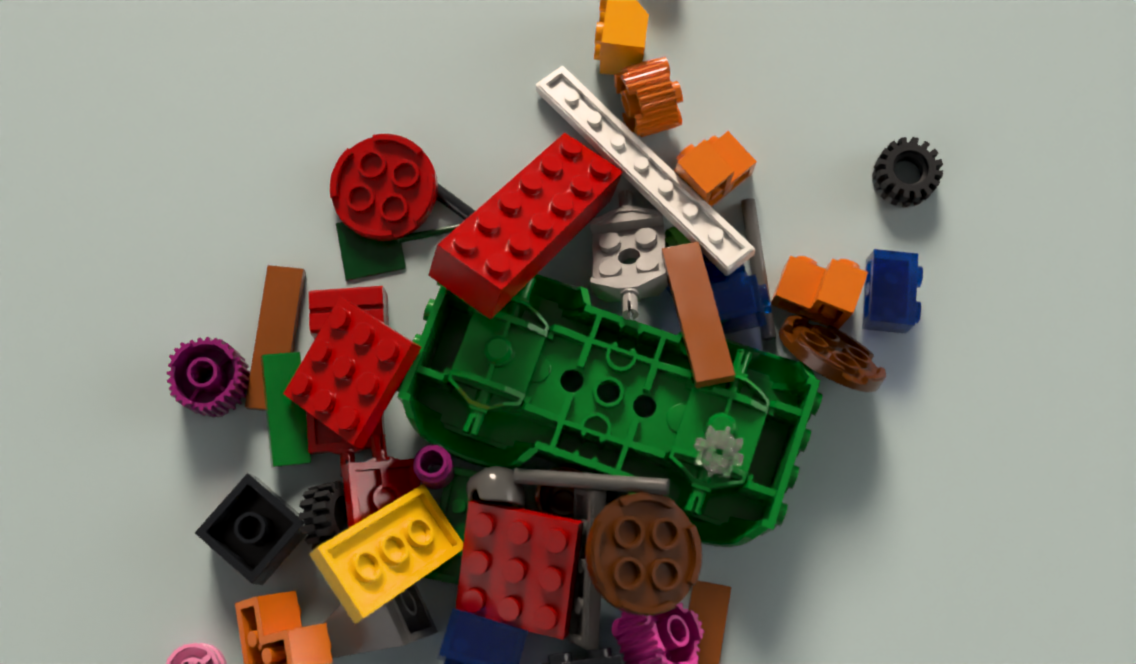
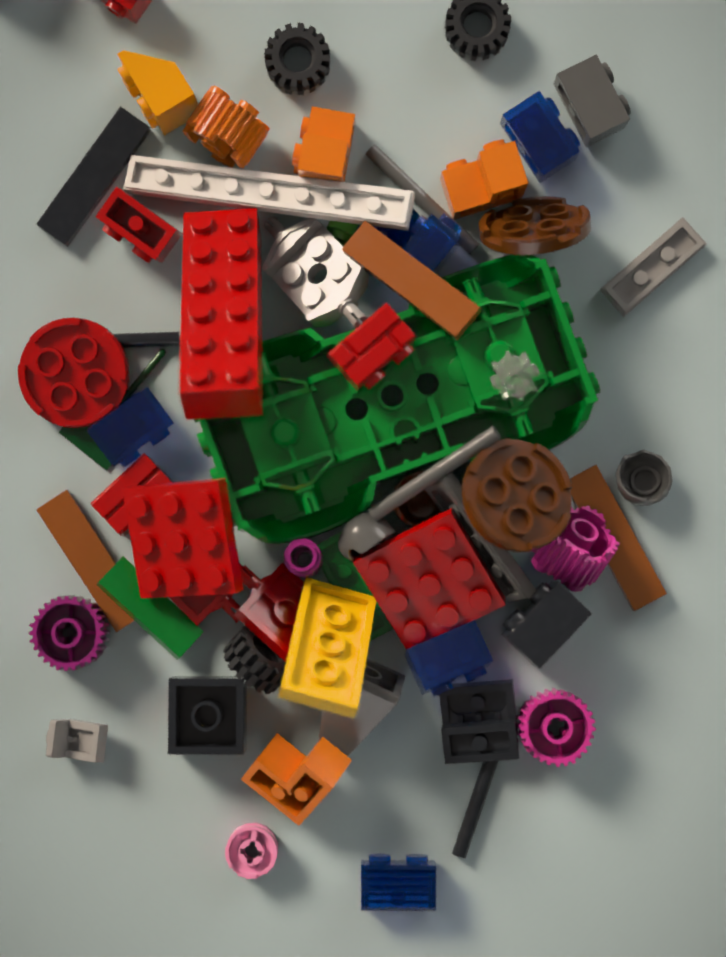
camera: 40 degrees left, 10 degrees up
(140, 464) = (76, 740): none -> light grey bracket
(388, 259) = (131, 427): none -> clear blue brick
(521, 60) = (93, 176): none -> black tile
(523, 116) = (139, 225): none -> red brick
(622, 339) = (372, 347): none -> red brick
(751, 74) = (291, 38): none -> black tyre
(762, 630) = (643, 478): none -> dark grey hair
(904, 466) = (653, 267): none -> light grey tile
(955, 296) = (592, 100): none -> dark grey brick

